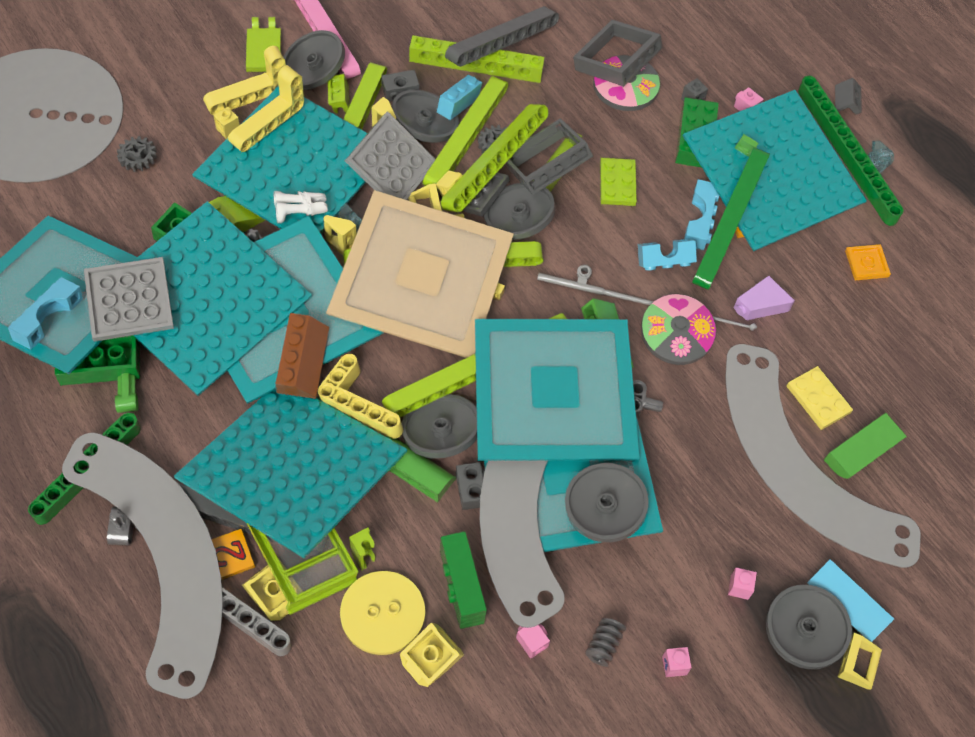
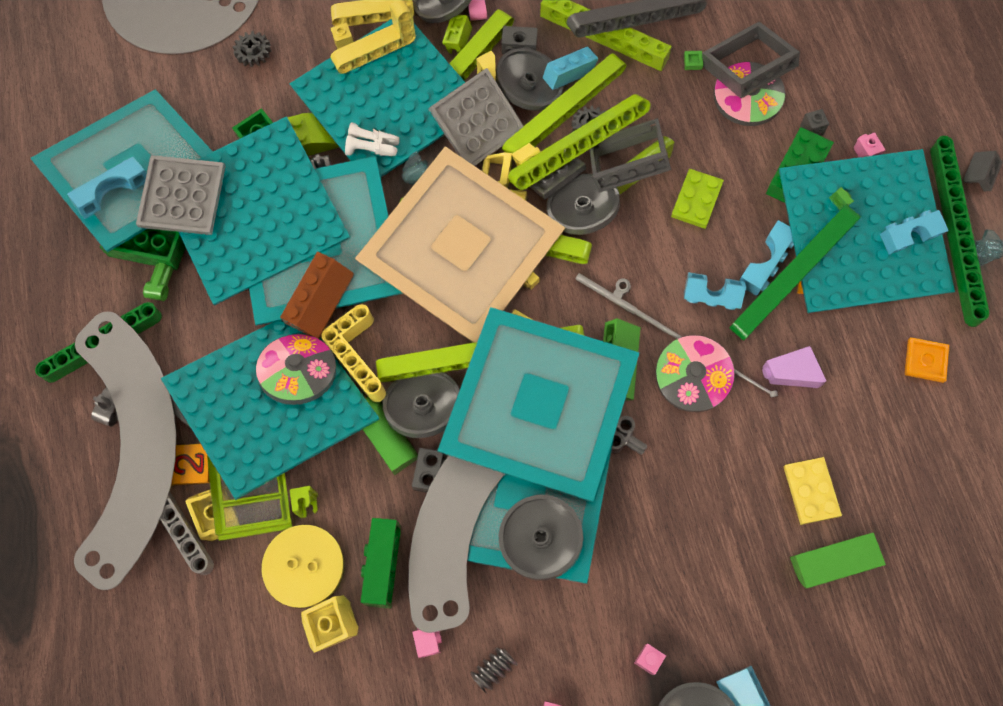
camera: 30 degrees right, 10 degrees up
(308, 428) = (296, 369): none -> dish
(344, 228) = (401, 178): light yellow tile -> none
(566, 66) = (693, 60): none -> bright green plate
(793, 476) = (753, 566): light grey piece -> none
(825, 150) = (928, 226): none -> medium azure arch

